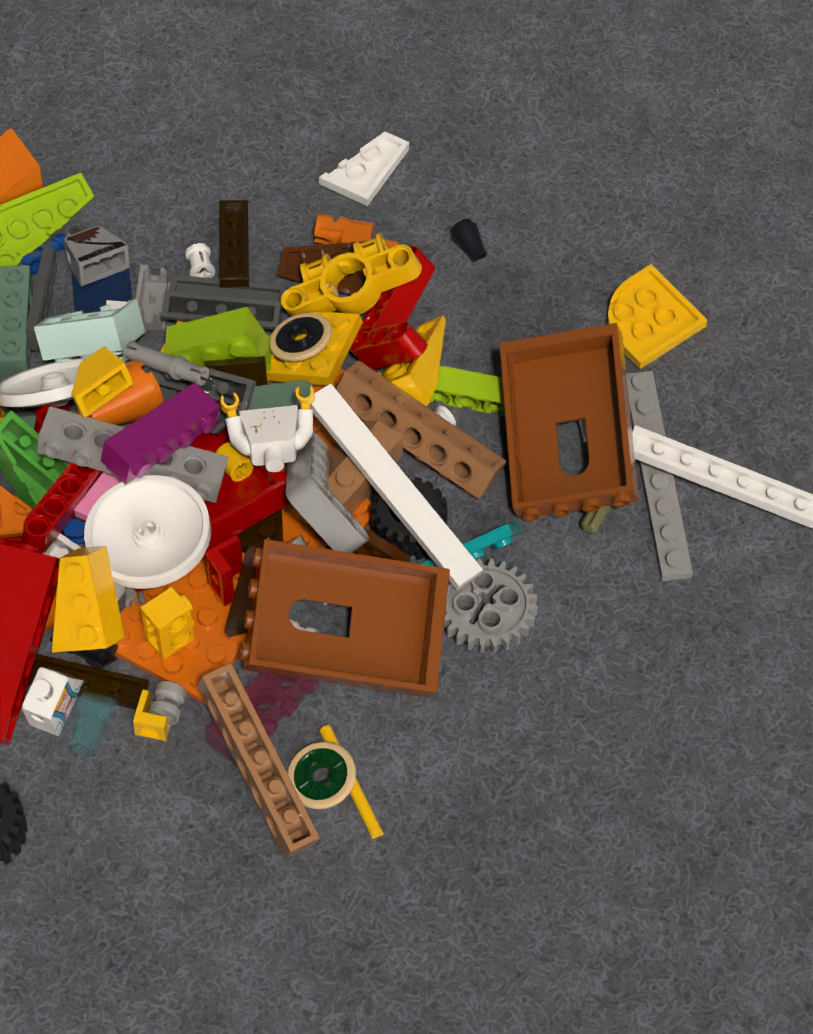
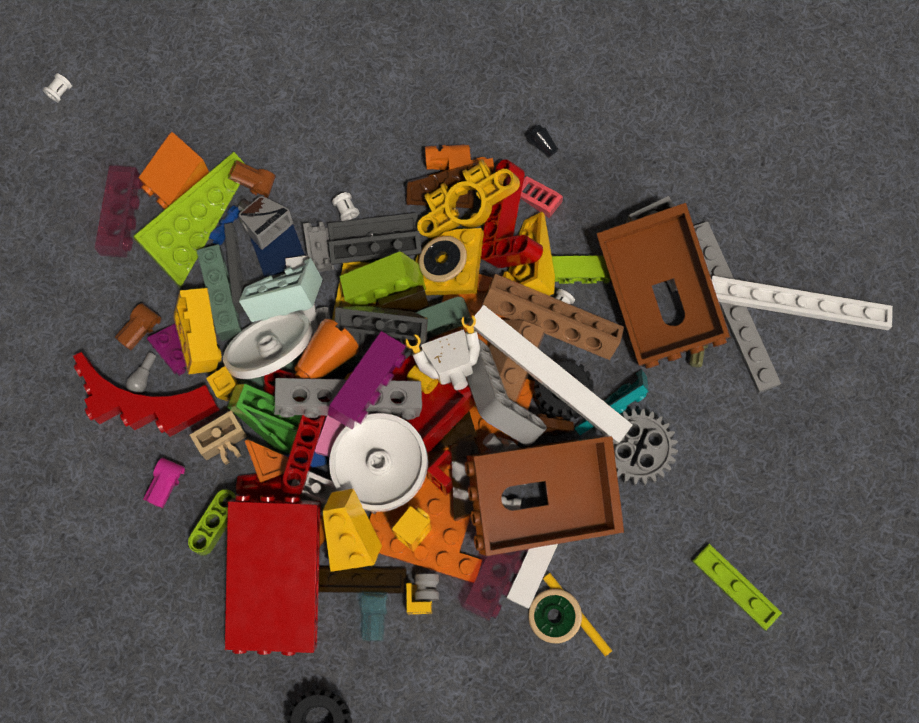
camera: 10 degrees left, 15 degrees up
(50, 699) = (340, 606): white torso -> none
(98, 210) = (258, 181): none -> dark orange piece
(99, 381) = (308, 349): yellow slope -> none
(176, 367) = (362, 319): light grey pin -> none
(234, 243) = (367, 185): dark brown tile -> none
(258, 761) = (511, 627): medium nougat brick -> none
(310, 717) = (531, 575): none -> white tile
(368, 170) = (449, 99): white wing -> none
(453, 317) = (549, 209): none -> coral slope
(567, 795) = (737, 587): none -> lime tile
(652, 316) = (694, 175): yellow plate -> none

